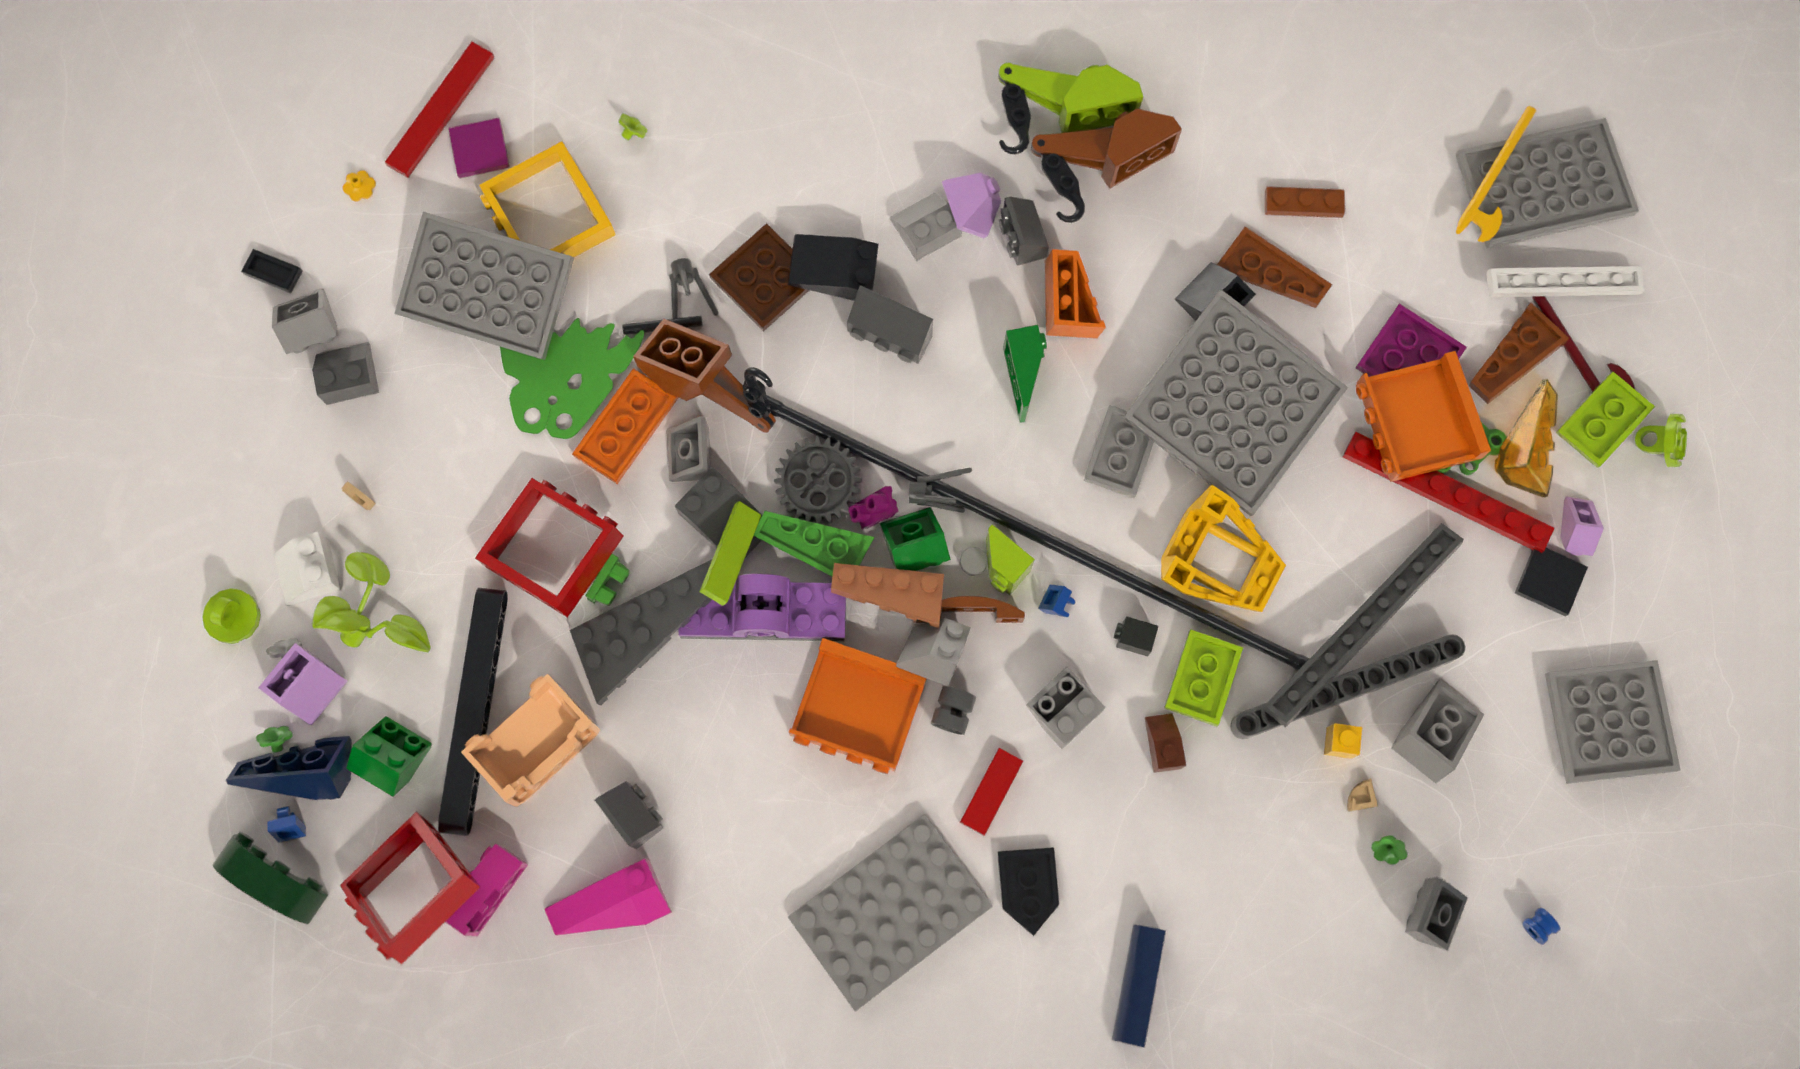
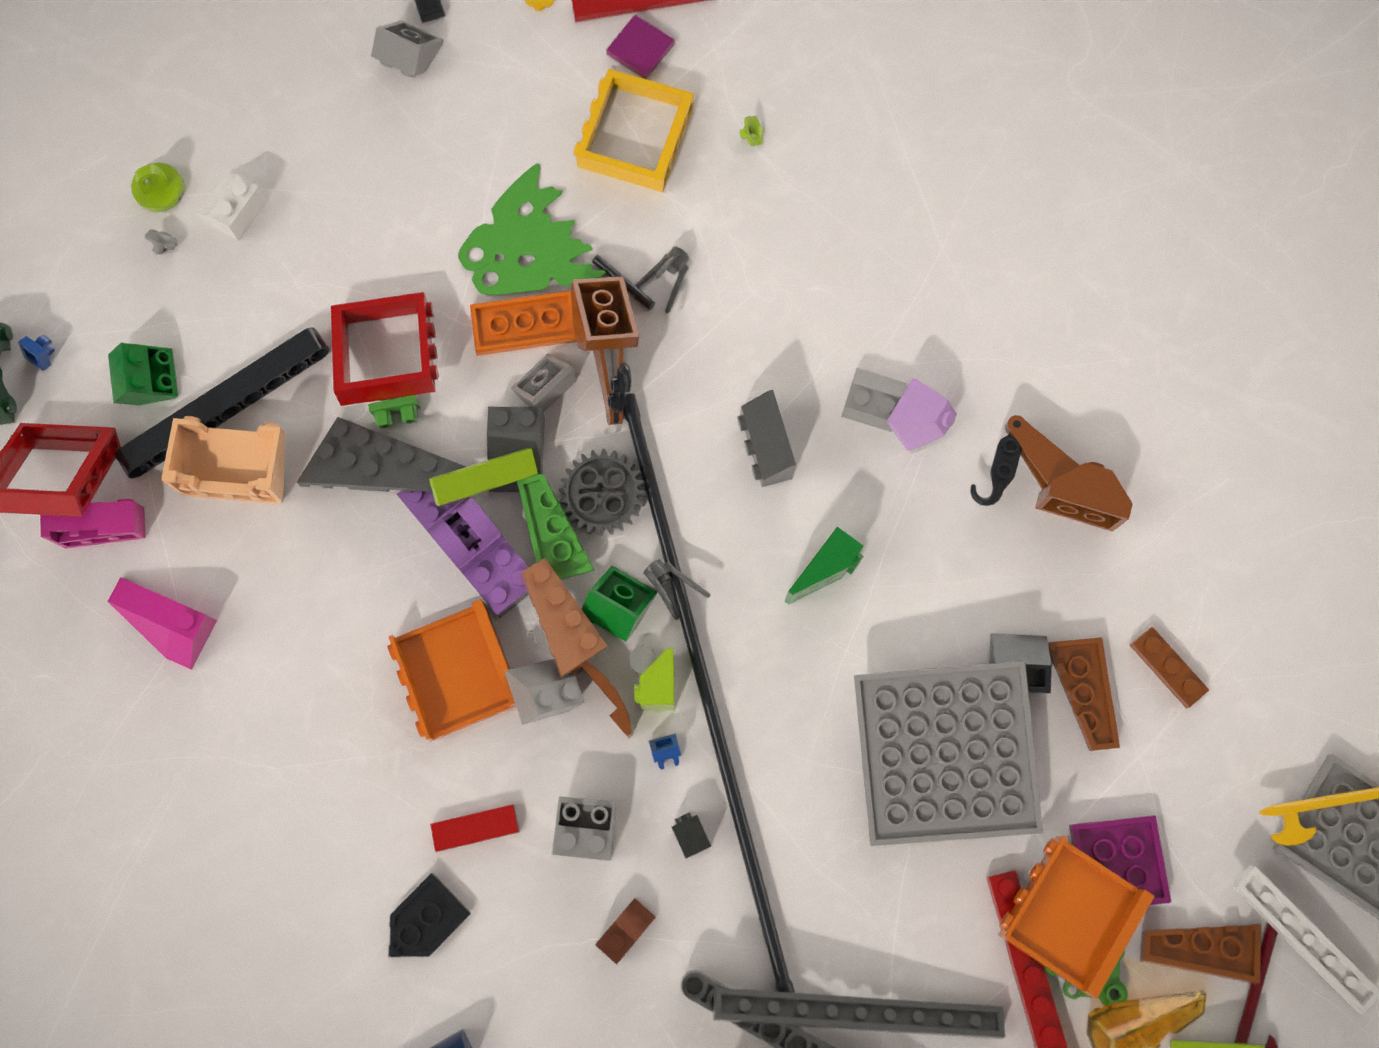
camera: 50 degrees right, 0 degrees up
(274, 737) = (93, 289): bright green plant -> none
(303, 684) = (144, 273): lavender slope -> none
(303, 773) = (82, 328): dark blue wedge -> none
(337, 615) = (198, 249): lime plant -> none
(345, 374) = (392, 105): dark grey slope -> none
(358, 496) = (314, 191): tan tile -> none
(484, 285) = (537, 137): light grey plate -> none
(630, 814) = (231, 575): dark grey slope -> none
(758, 277) = (725, 320): reddish brown plate -> none
(832, 264) = (776, 358): black slope -> none
(874, 508) = (615, 551): magenta hips -> none
(889, 912) = (319, 831): light grey plate -> none
(957, 701) = (520, 742): dark grey wheel -> none
(1023, 230) = (934, 477): dark grey slope -> none
(1068, 299) = (913, 553): orange wedge -> none
(1081, 101) = (1081, 426): lime slope -> none
(1119, 455) = (824, 698): light grey plate -> none
(1188, 537) = (827, 805): yellow windscreen -> none
(1203, 678) = (704, 918): lime plate -> none

